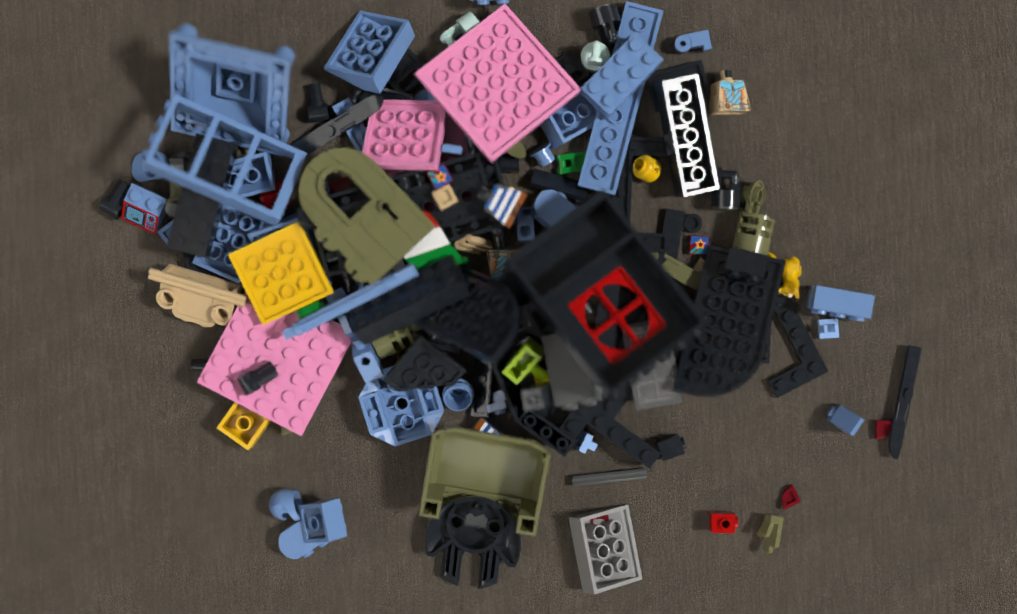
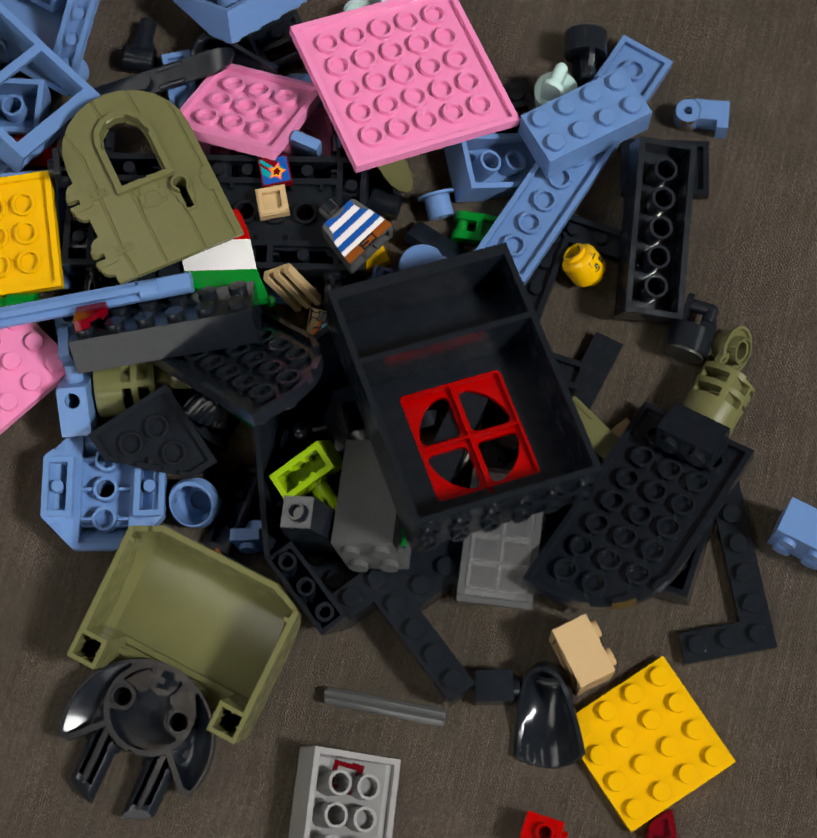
camera: 25 degrees right, 15 degrees down
(359, 310) = (89, 313): none -> dark red tile
(584, 442) = (363, 637): light blue tile -> none
(692, 223) = (629, 366): black tile -> none
(698, 245) = (628, 399): tile -> none
(706, 456) = (547, 719): none -> black hair
(717, 415) = (582, 653): none -> tan brick
(728, 96) = (734, 201): torso -> none
(767, 450) = (649, 744): none -> yellow plate
(790, 277) = (755, 481): yellow animal -> none
(828, 328) = (794, 582): light blue tile -> none
(844, 419) = (781, 725): medium blue slope -> none

